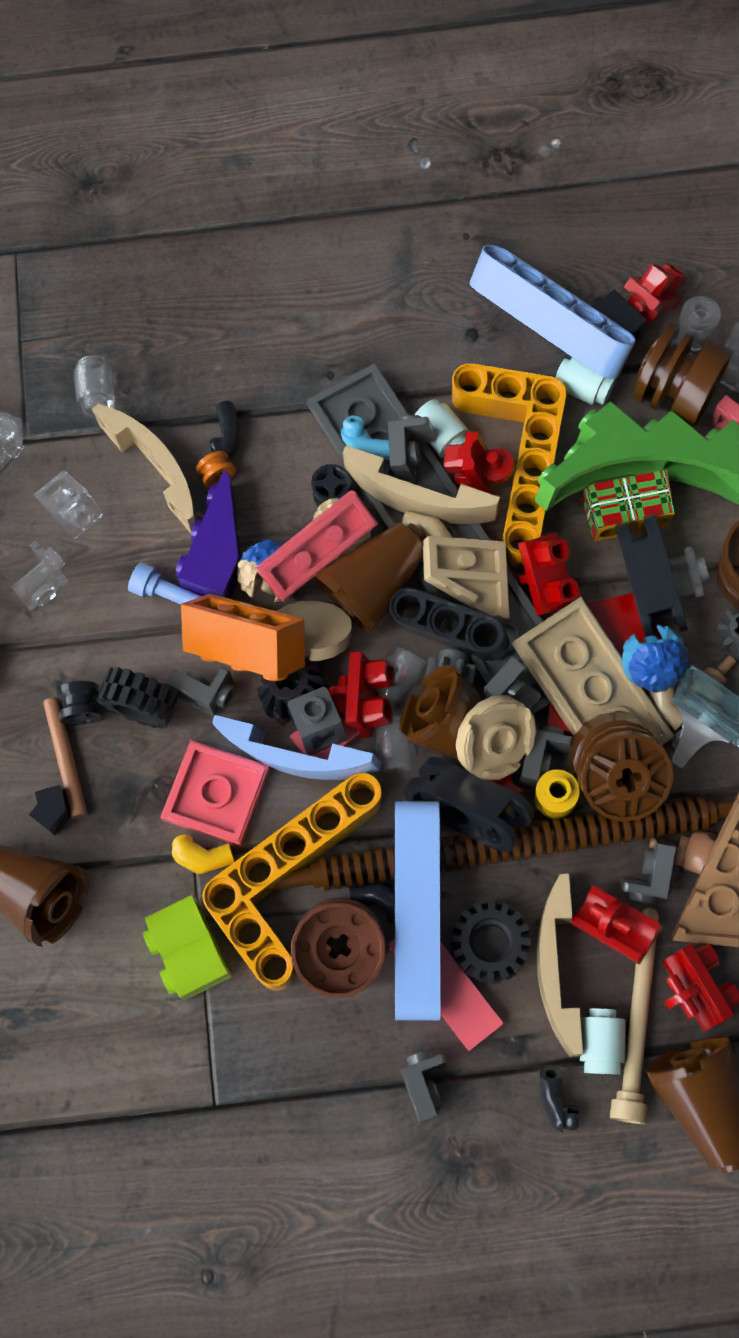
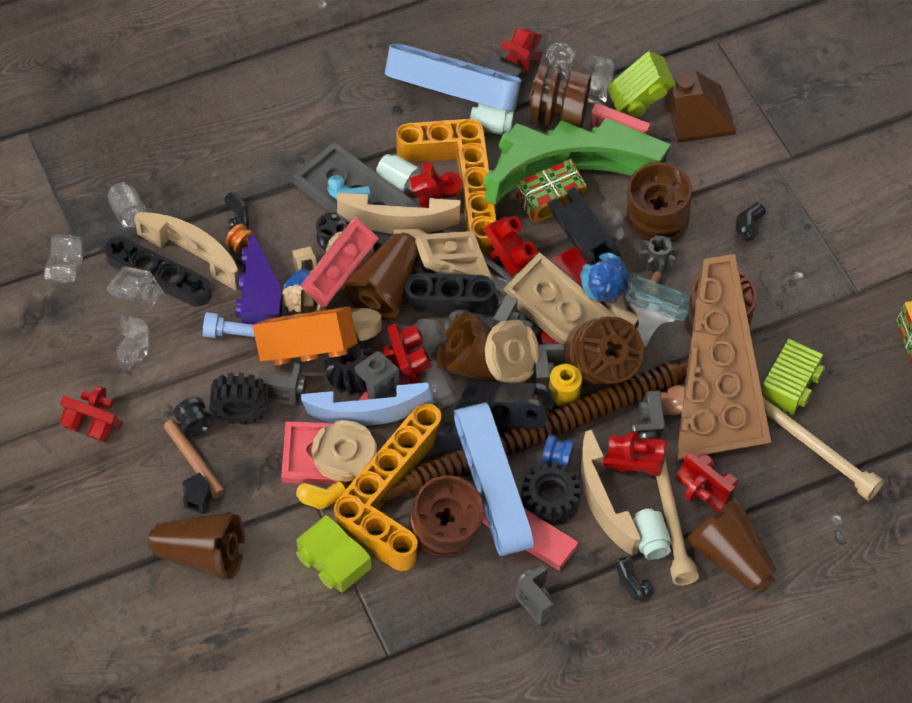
camera: 25 degrees left, 15 degrees down
(108, 482) = (160, 268): none -> black beam
(246, 805) = (343, 450): none -> tan tile
(284, 522) = (304, 259): none -> tan piece
(382, 823) = (447, 438): none -> black piece
(404, 441) = (378, 179): dark grey bracket -> none
(517, 886) = (558, 451): none -> blue wheel

